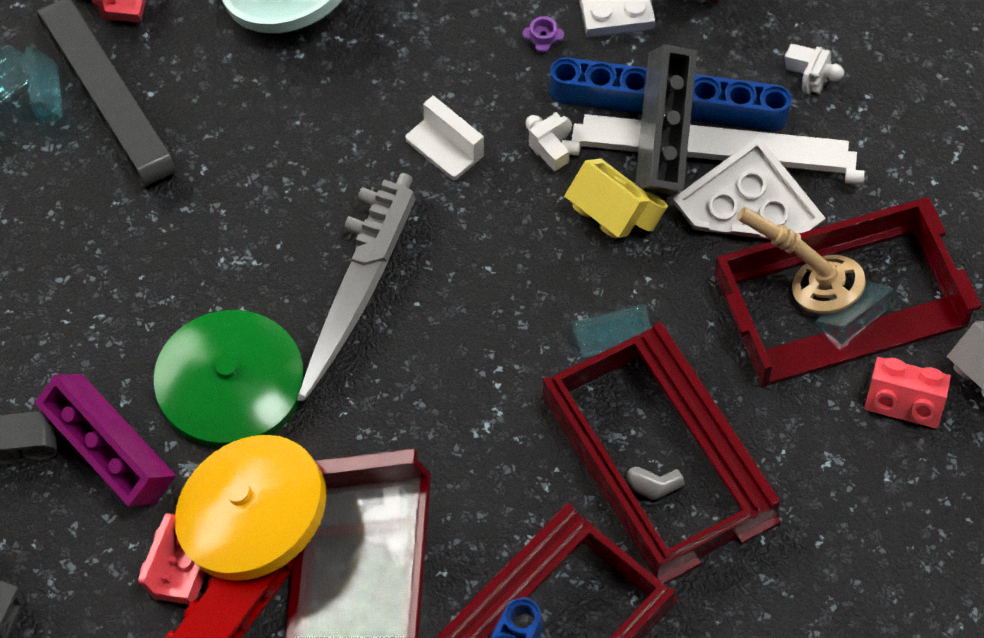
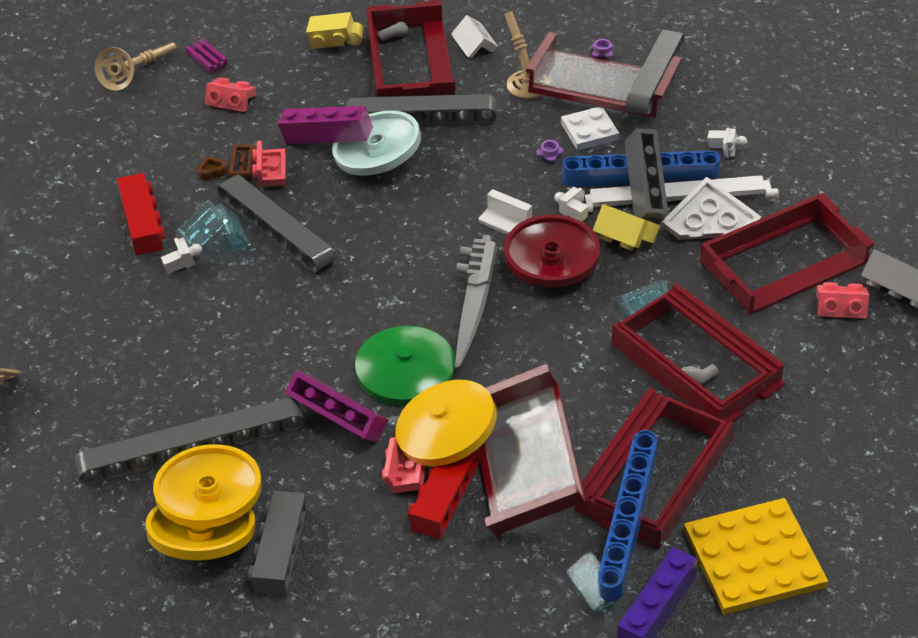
camera: 10 degrees left, 15 degrees down
(493, 222) = (552, 250): none -> dark red dish
(825, 277) = (770, 246): tan dish -> none
(848, 322) = (797, 263): clear light blue slope -> none

